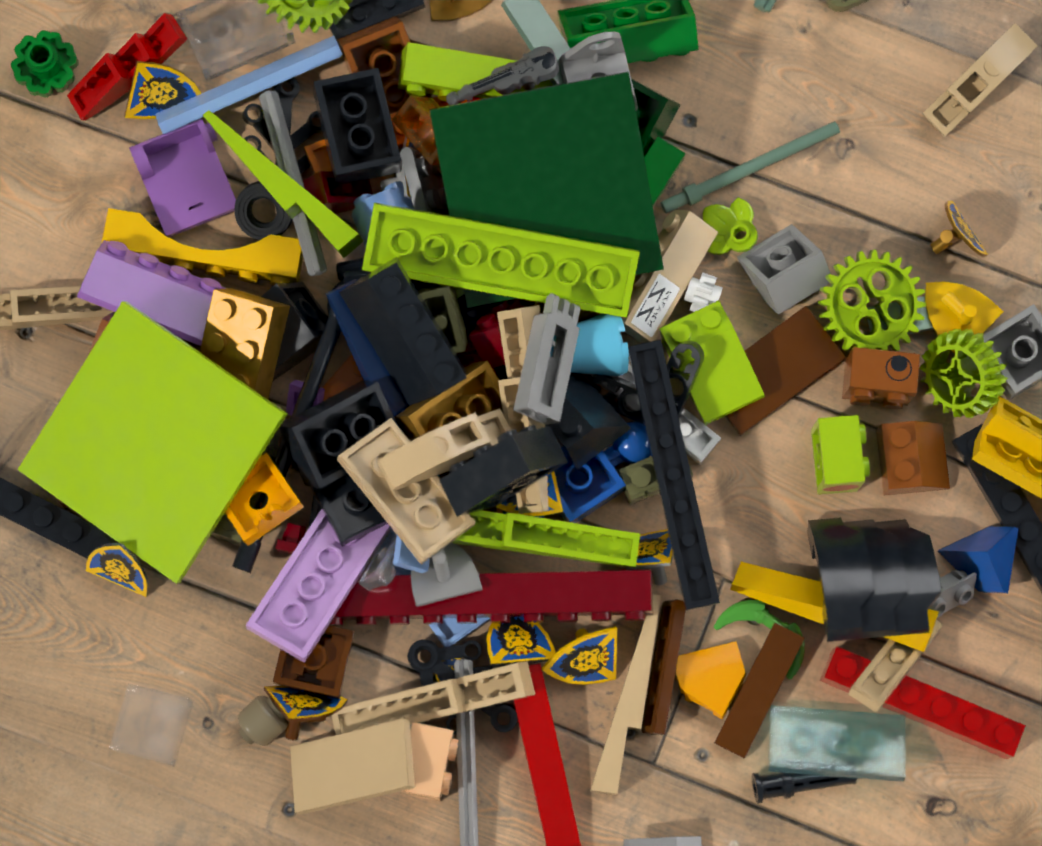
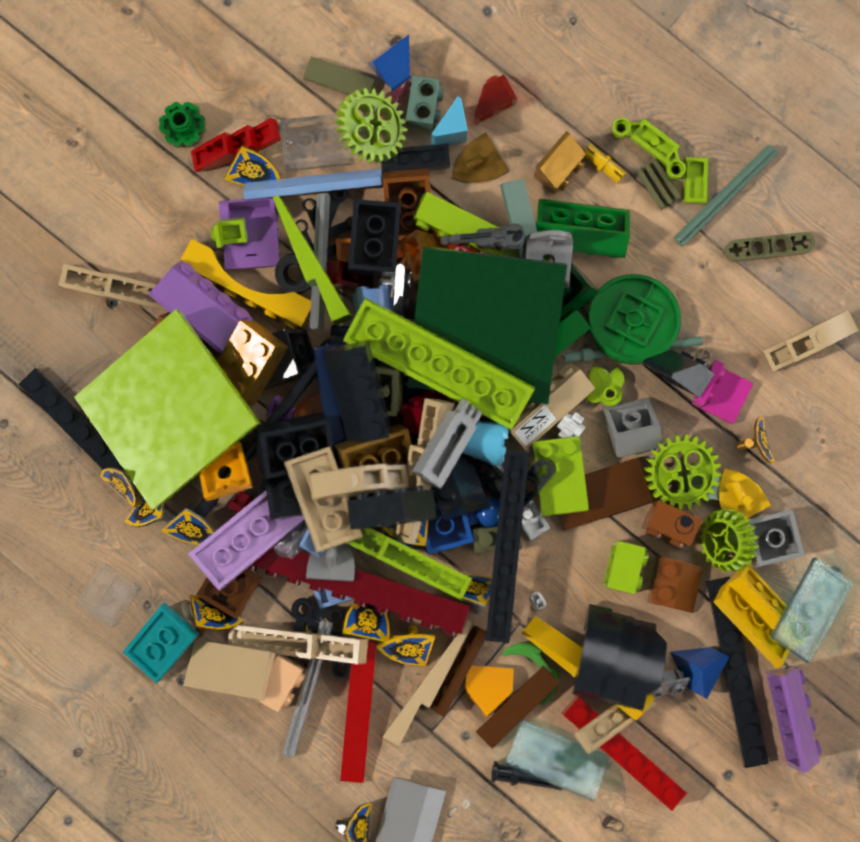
camera: 25 degrees right, 5 degrees up
(157, 183) = (229, 231): none -> lime bracket
(167, 596) = (143, 515): none -> shield
(231, 596) = (188, 527): none -> shield
(245, 764) = (160, 642): none -> teal tile
(737, 541) = (537, 601): none -> white rock
(738, 126) = (634, 318): none -> green plate
(824, 171) = (681, 370): none -> black slope
(887, 185) = (723, 394): none -> dark pink bracket

